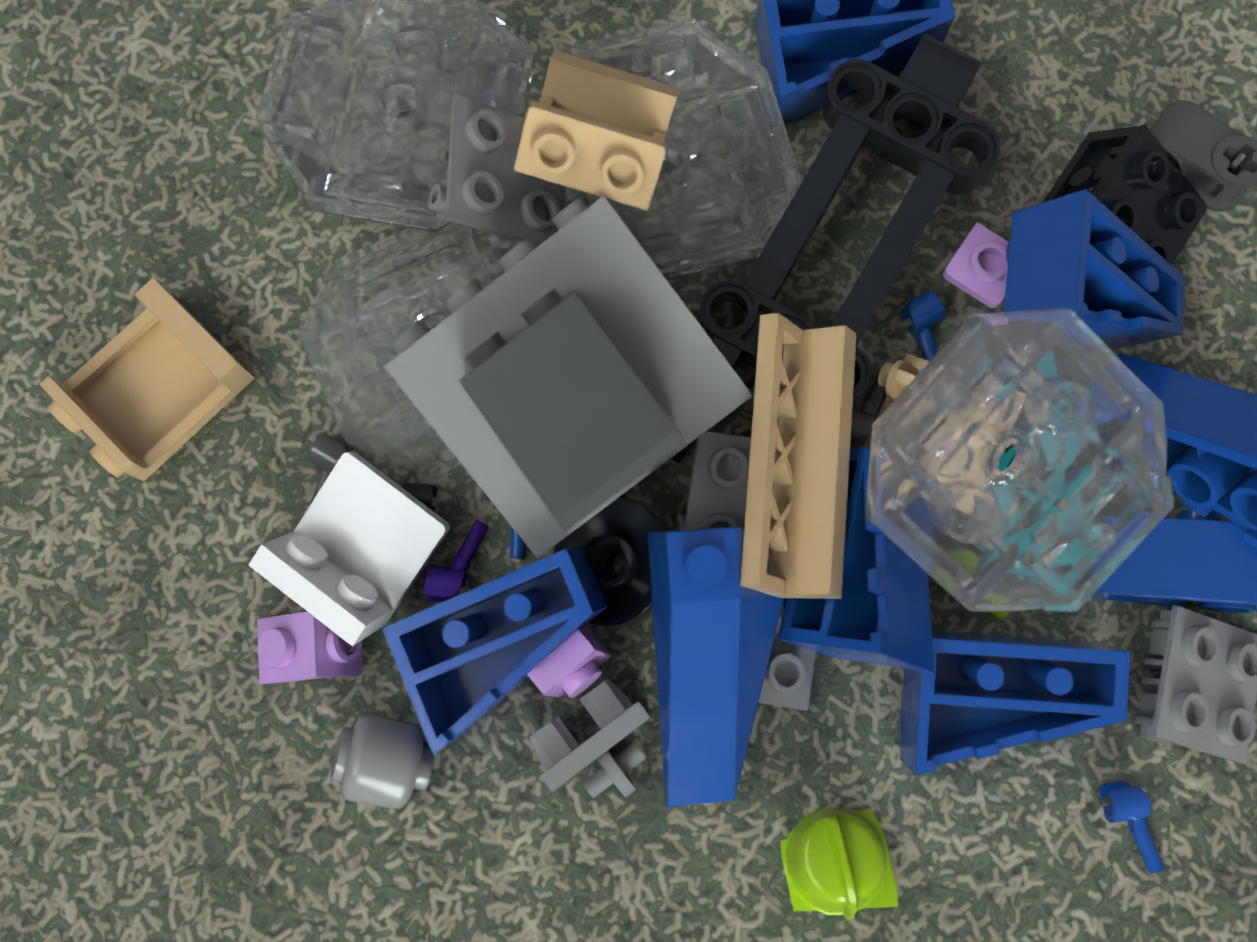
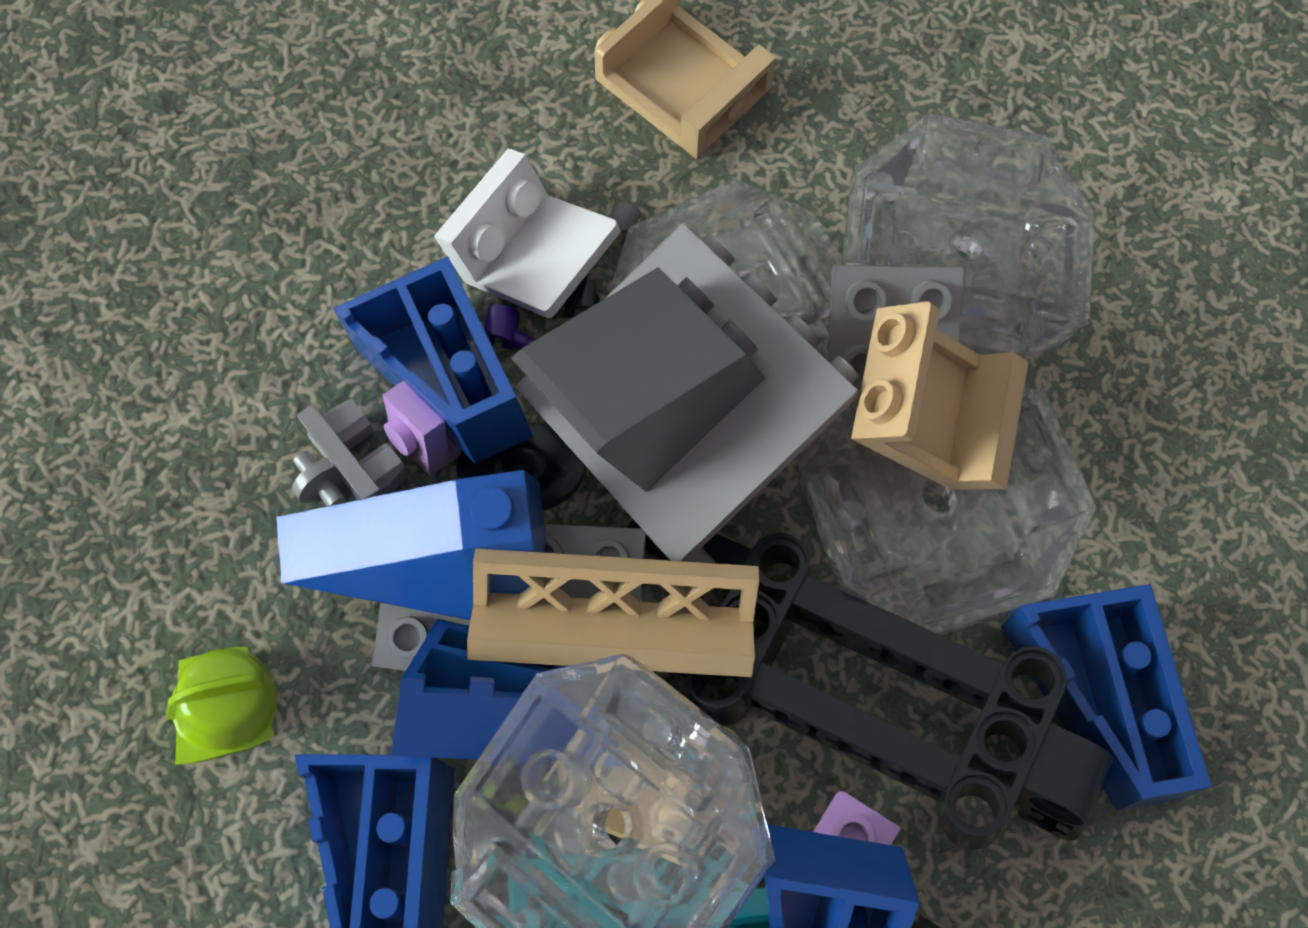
camera: 85 degrees right, 10 degrees down
(303, 649) = (431, 204): lavender bracket -> none
(381, 762) = (332, 273): light grey head -> none
(924, 313) = (799, 787): blue hand -> none

